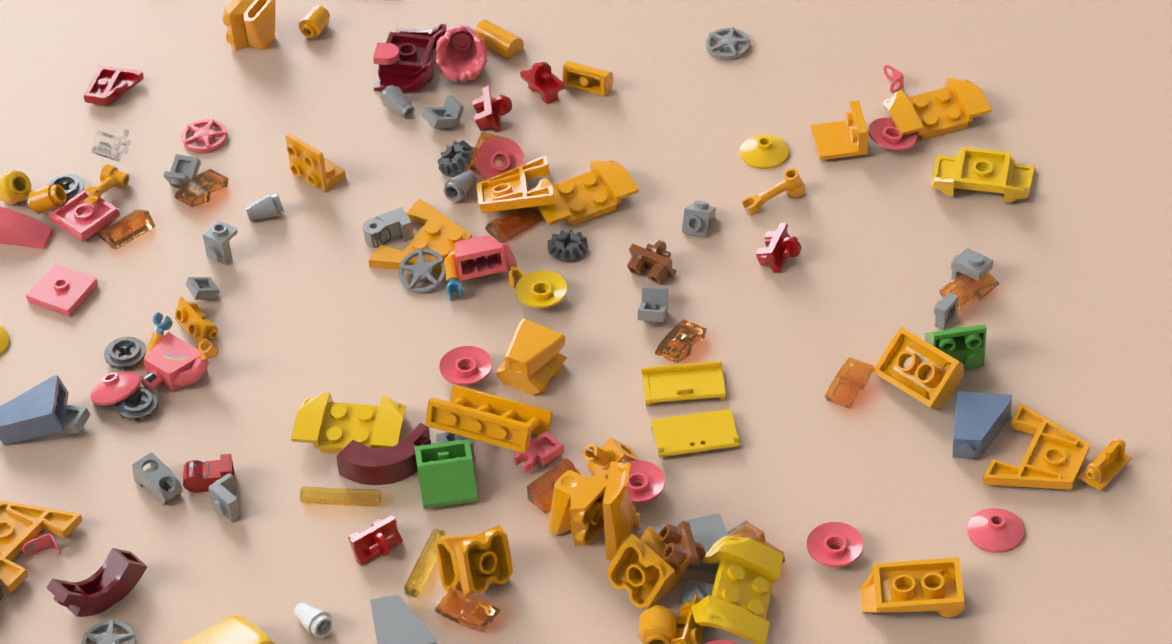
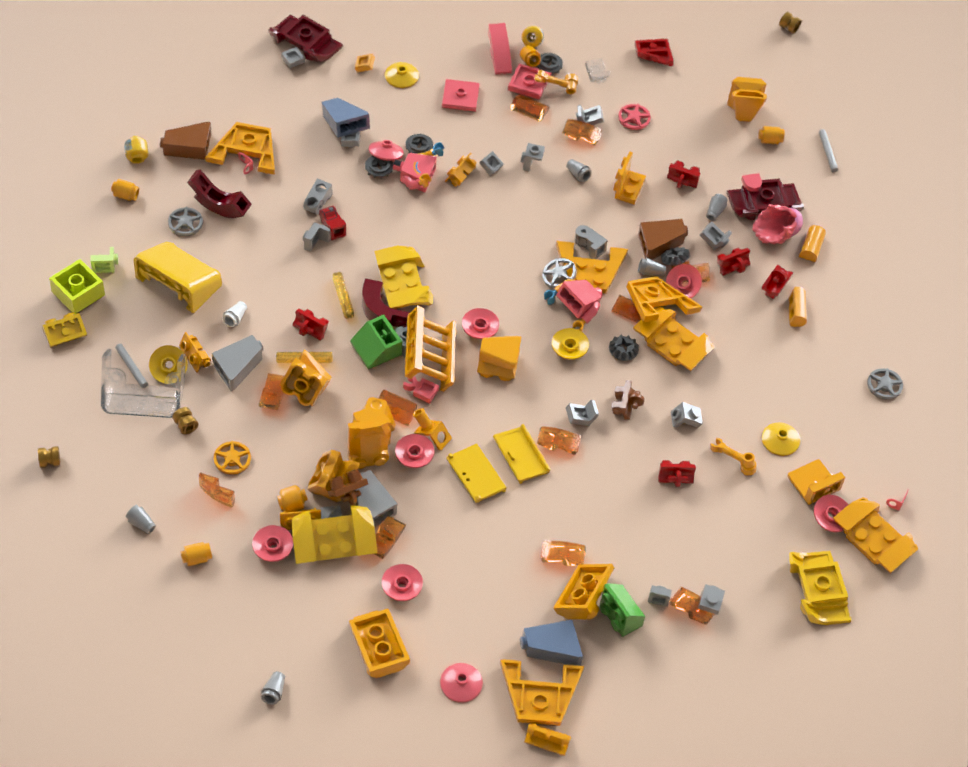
camera: 60 degrees right, 10 degrees up
(333, 115) = (683, 176): none -> red hips
(417, 163) = (661, 236): none -> dark orange slope

